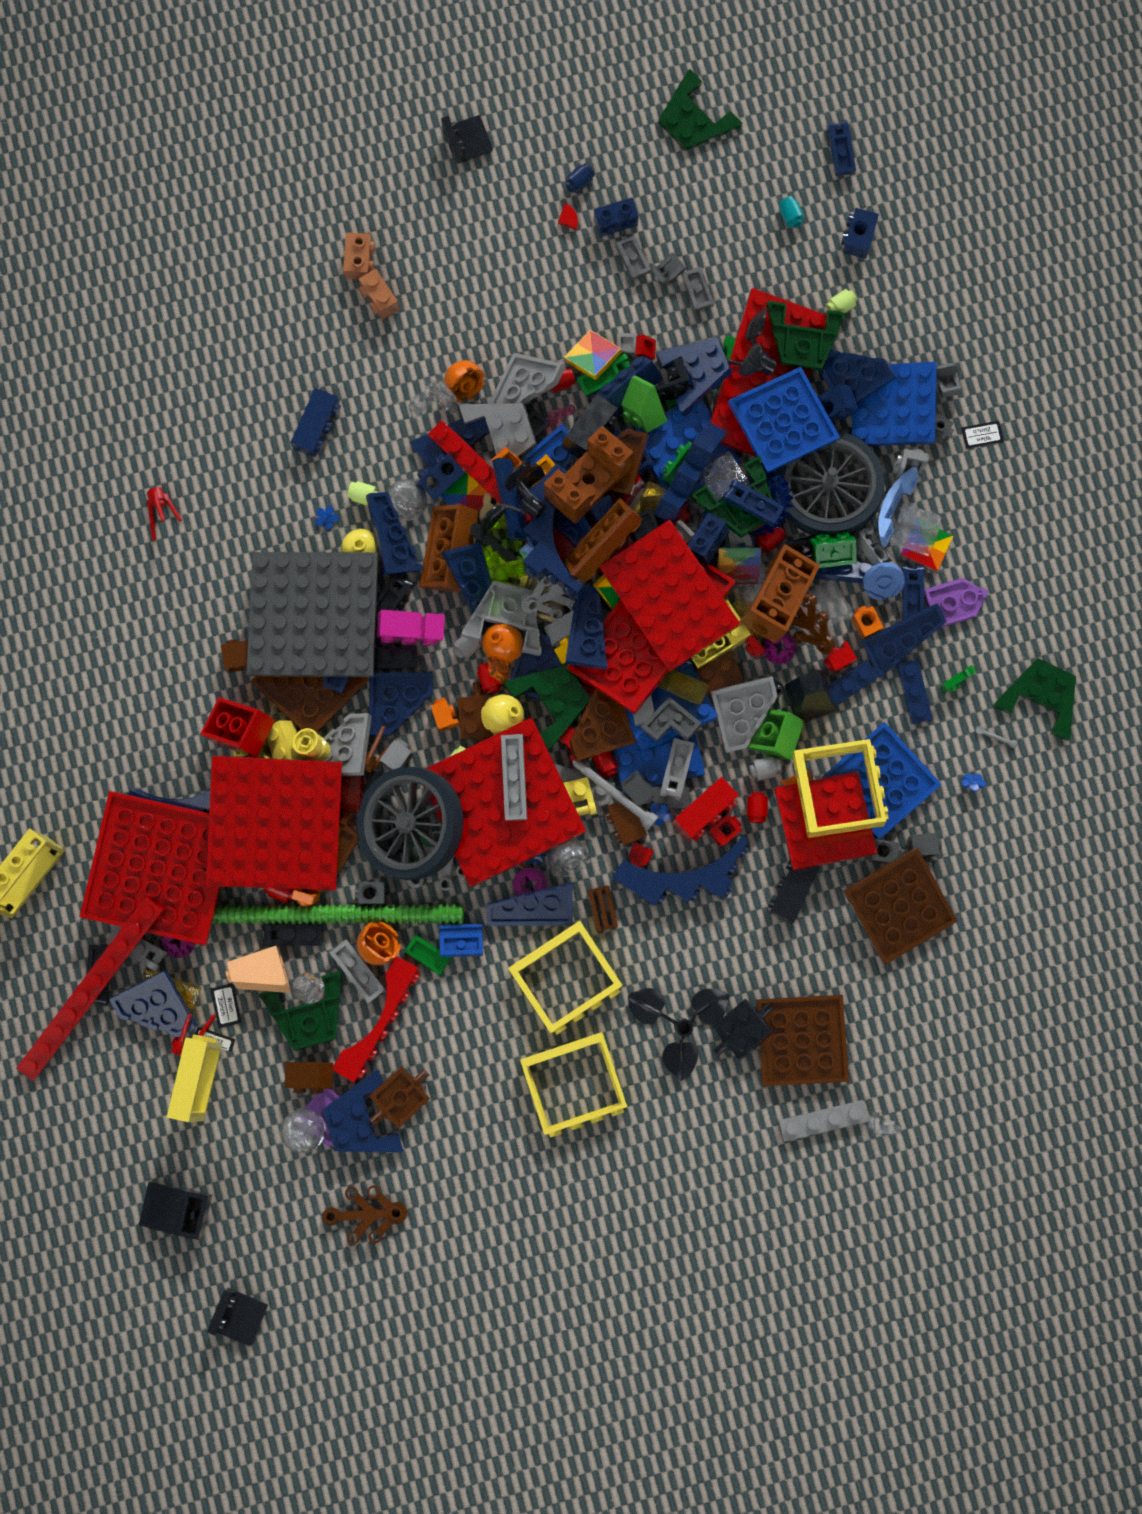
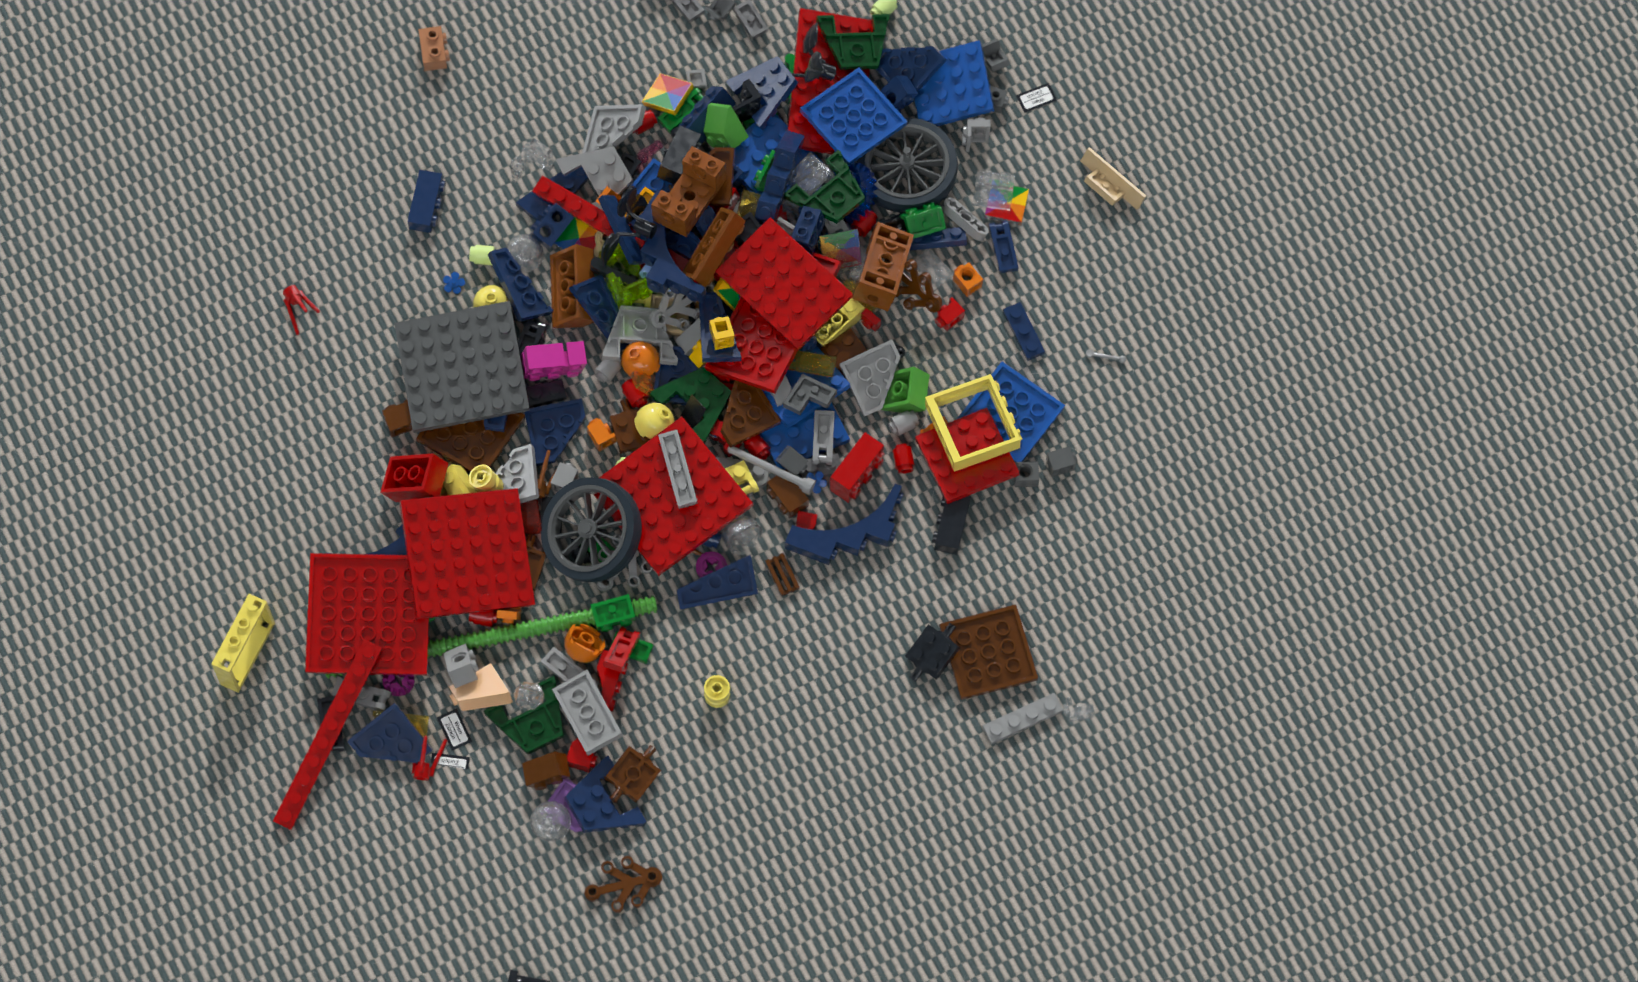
camera: 15 degrees left, 10 degrees down
(175, 1210) = (448, 914): black slope -> none
(194, 1079) = (444, 788): light yellow window -> none
(243, 942) = (461, 665): none -> light grey brick
(292, 935) = (504, 654): black plate -> none
(364, 1023) = (587, 712): none -> light grey plate
(378, 293) = (459, 78): nougat brick -> none
(380, 897) = (572, 595): dark grey brick -> none
(414, 917) = (613, 613): none -> green bracket
(414, 961) = (621, 649): none -> red plate
(461, 940) = (659, 627): blue plate -> none
(464, 379) = (556, 136): orange cylinder -> none
(506, 1025) = (717, 691): none -> light yellow wheel
(545, 712) = (693, 412): none -> black sticker
(591, 644) = (721, 332): none -> yellow brick
(593, 1003) = (742, 615): light yellow window -> none
(594, 1116) = (772, 704): light yellow window -> none
(645, 347) = (713, 77): red plate -> none
(679, 1057) = (878, 689): black plant -> none
(721, 838) = (879, 476): red brick -> none
(753, 502) = (841, 189): dark blue plate -> none
(785, 655) = (899, 322): magenta gear -> none
(810, 696) = (930, 351): black slope -> none
(852, 682) = (961, 338): dark blue plate -> none
(883, 581) = (974, 239): medium blue tile -> none
(900, 639) = (999, 288): dark blue wing -> none
(900, 906) = (1050, 516): reddish brown plate -> none
(904, 484) = (975, 153): light blue slope -> none
(953, 683) = (1057, 316): green plate -> none
(957, 600) = (1042, 246): medium lavender tile -> none
(974, 782) = (1093, 398): blue plant -> none
(1041, 545) = (1109, 182): none -> tan bracket
(1047, 687) = (1141, 304): dark green wing -> none

